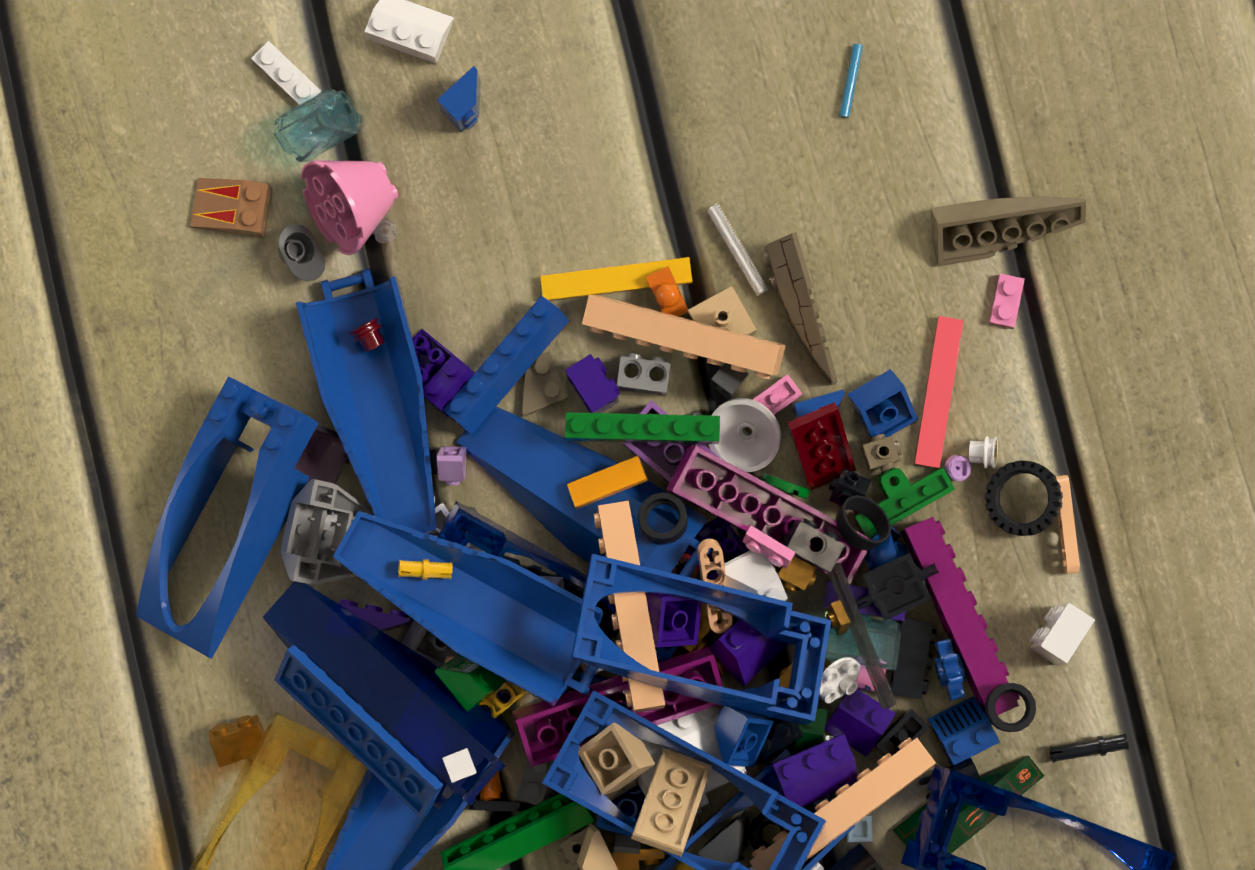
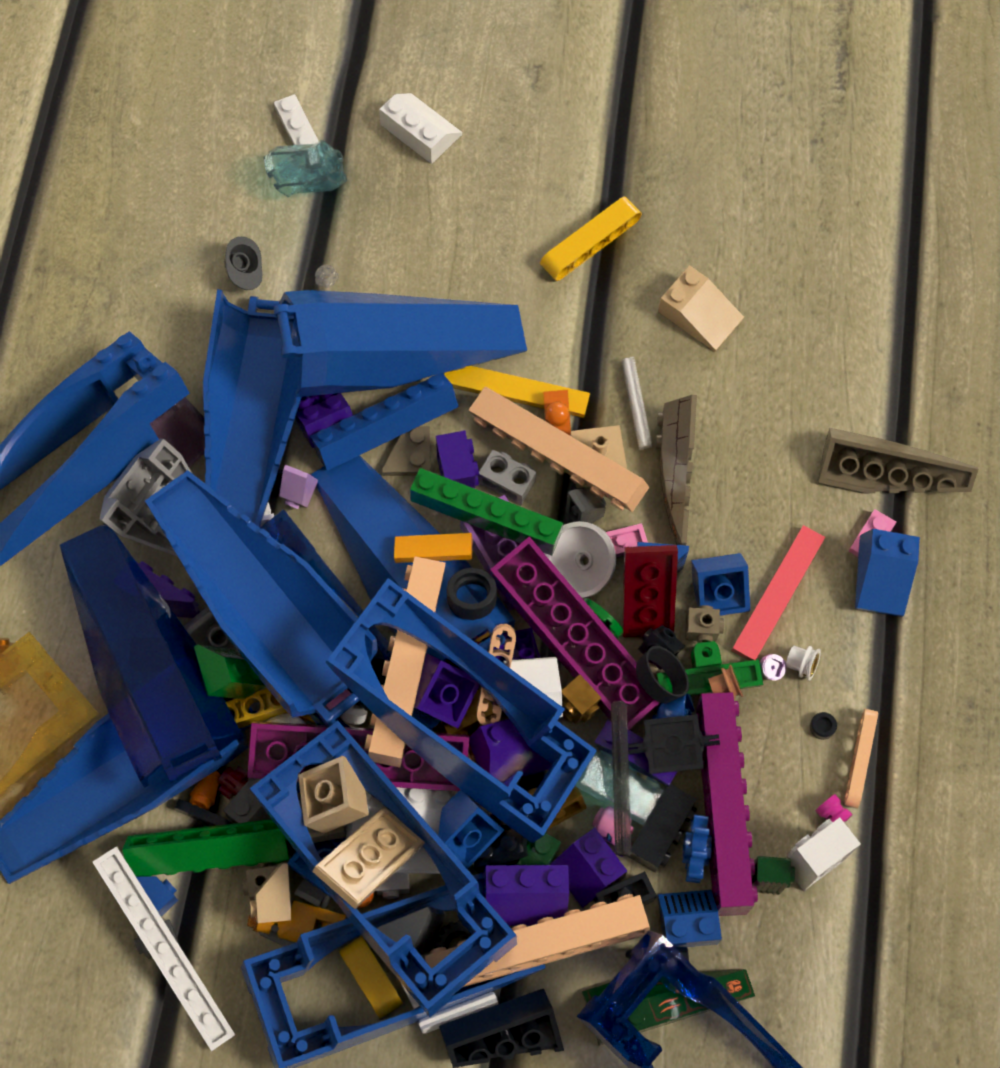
camera: 15 degrees right, 15 degrees down
(231, 206) = (203, 210): medium nougat slope -> none
(347, 199) = (304, 231): bright pink cone -> none
(358, 732) = (97, 679): blue plate -> none
(368, 335) = (270, 348): dark red piece -> none
(425, 569) = (225, 545): yellow pin -> none
(459, 765) = (176, 737): white tile -> none
(462, 101) = (440, 191): blue slope -> none
(484, 282) = (390, 339): none -> blue windscreen
(514, 767) = (232, 781): none -> dark red gear
(628, 90) = (590, 238): none -> yellow beam
(764, 127) = (700, 309): none -> tan slope
(776, 552) = (562, 656): bright pink plate -> none
(828, 546) = (591, 669): brick -> none
(838, 618) = (605, 753): pearl gold plate -> none
(839, 679) = (583, 811): white dish -> none
(851, 80) = (794, 301): dark azure bar -> none
(862, 831) = (549, 978): light aqua tile -> none
(922, 505) = (726, 682): none -> nougat piece
(993, 498) = (815, 688): black tyre -> none
(1022, 505) = (823, 725): none -> black tile
(1024, 666) = (773, 874): none -> dark green brick
(1029, 703) = (762, 889): black tyre -> none
(1031, 337) = (886, 571): none -> blue slope
(1059, 585) = (832, 810): none -> dark pink wheel
(1088, 748) = (809, 984): black pin -> none

